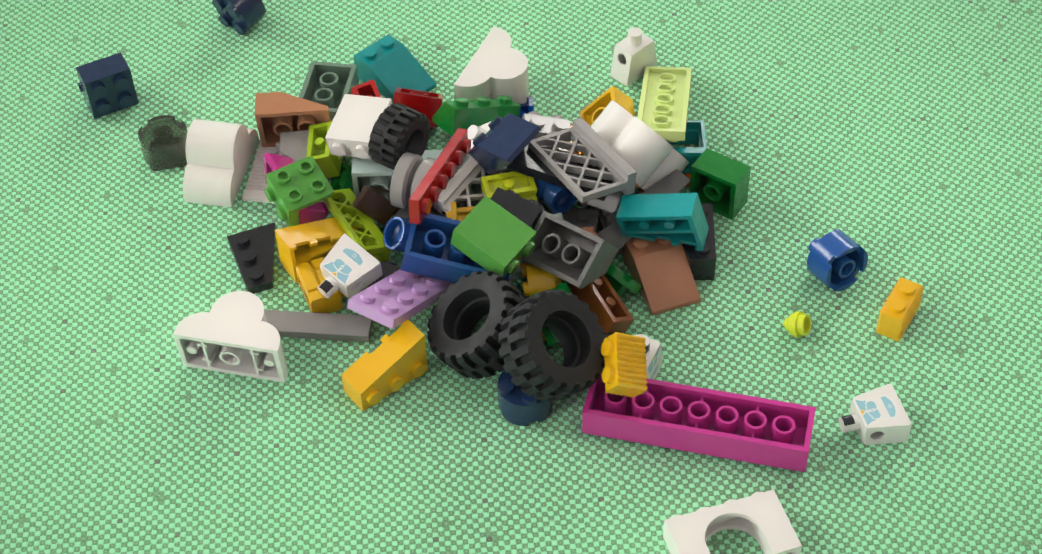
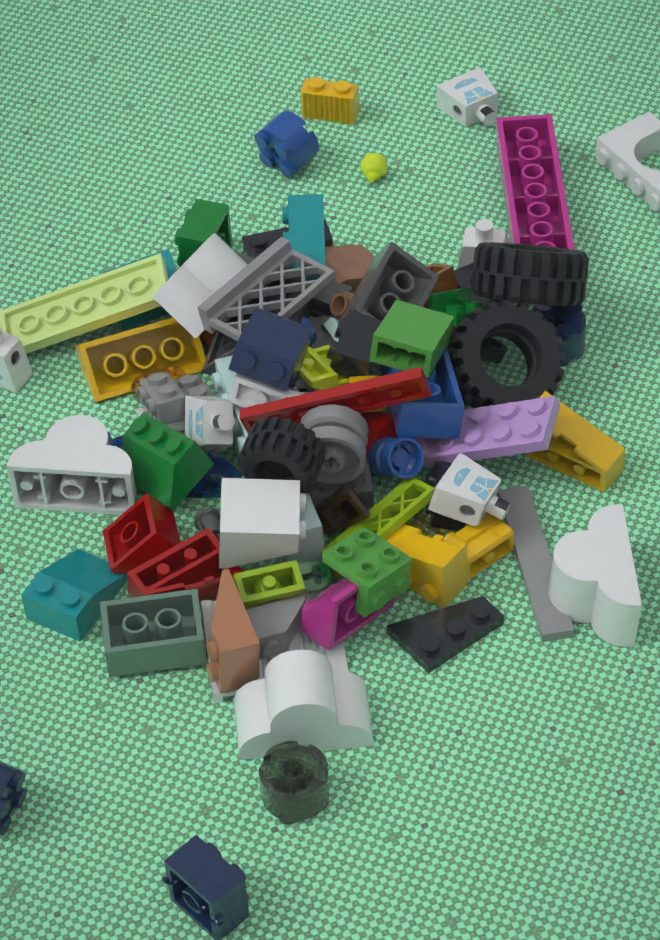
camera: 105 degrees left, 0 degrees up
(624, 364) = (525, 225): yellow brick -> none

